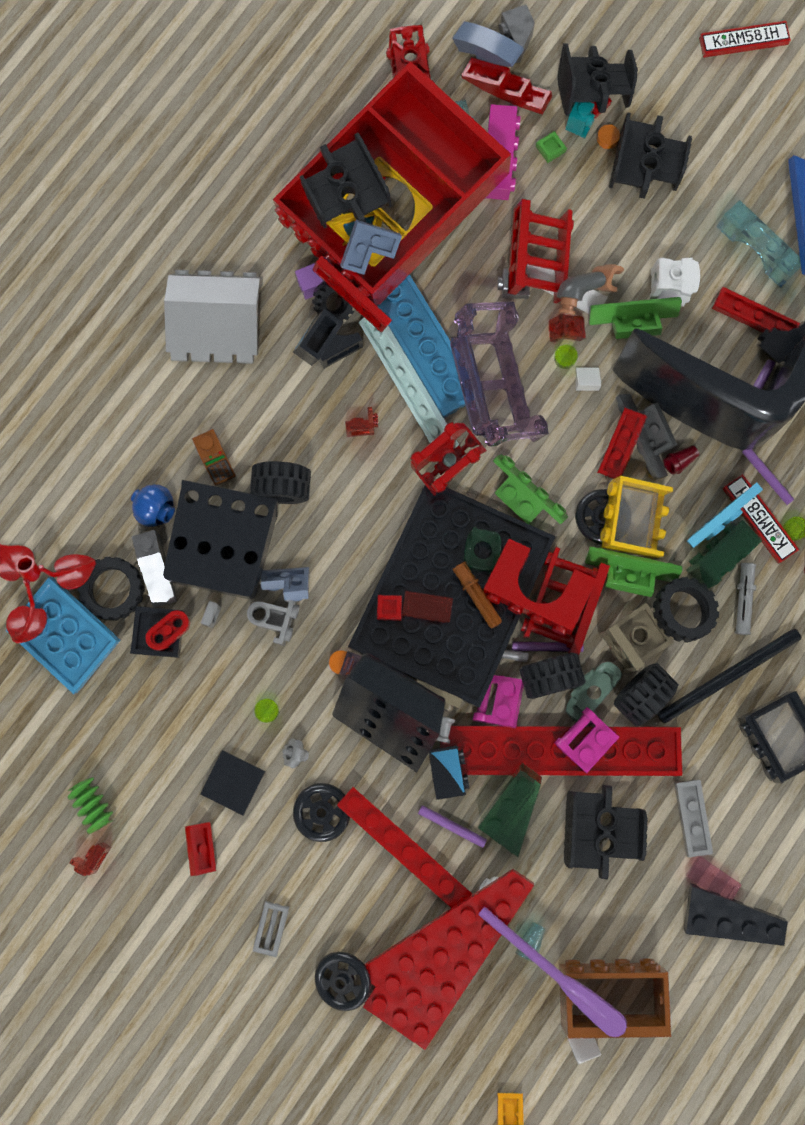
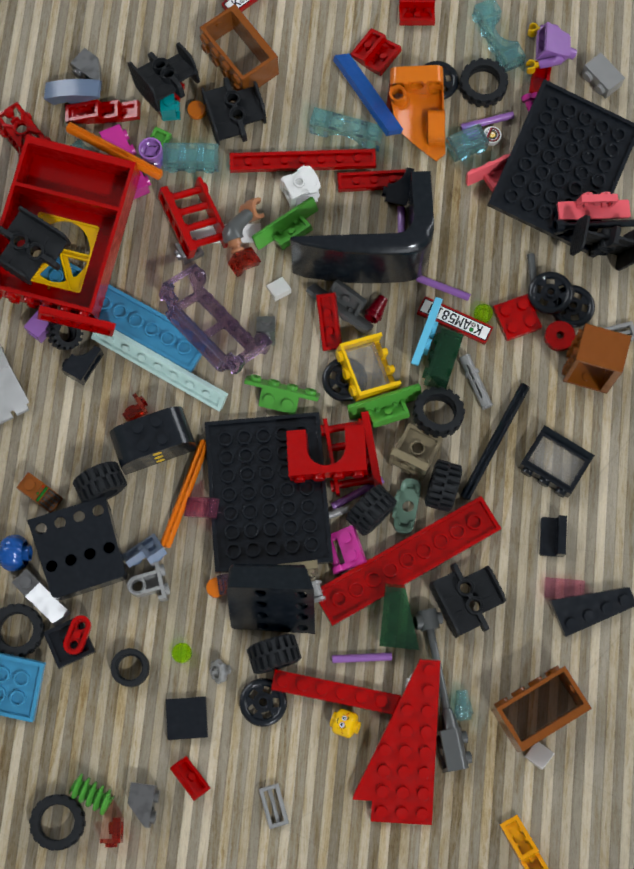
camera: 30 degrees left, 5 degrees down
(15, 814) = (37, 813): none -> black tyre
(137, 843) = (142, 801): none -> flat silver slope
(186, 699) = (115, 665): none -> black tyre
(211, 614) = (102, 607): light grey tile -> none
(317, 337) = (68, 364): black brick -> none
(355, 967) = (333, 821): black plate -> none
(360, 771) = (274, 653): none -> black tyre
(362, 466) = (152, 439): none -> black brick
(363, 544) = (184, 493): none -> orange axle
(365, 240) = (67, 276): sand blue plate -> none
(373, 569) = (201, 507): none -> clear pink tile
(389, 607) = (229, 527): red tile -> none
(394, 887) = (345, 723): none -> yellow head
(427, 607) = (256, 511): clear red tile -> none
(439, 449) = (201, 395): red piece -> none
(447, 772) = (336, 619): black brick -> none
(471, 585) = (286, 483): dark orange axle -> none
(479, 535) = (261, 445): clear green piece -> none
(492, 127) = (113, 150): none -> orange axle
(498, 969) = (451, 739): none -> dark grey bar
(533, 157) = (151, 151): none -> medium lavender wheel
(552, 412) = (266, 325): none -> flat silver bracket
(565, 356) = (254, 281): clear neon green tile -> none
(573, 184) = (191, 157): none -> clear light blue brick
(591, 1004) = (522, 717): medium lavender piece -> none
(592, 746) = (427, 542): dark pink plate -> none
(681, 246) = (295, 159): none -> red plate
(692, 56) = (222, 24): none -> dark orange hose
(693, 818) = (526, 553): light grey plate -> none
(735, 816) = (553, 536): none -> black panel

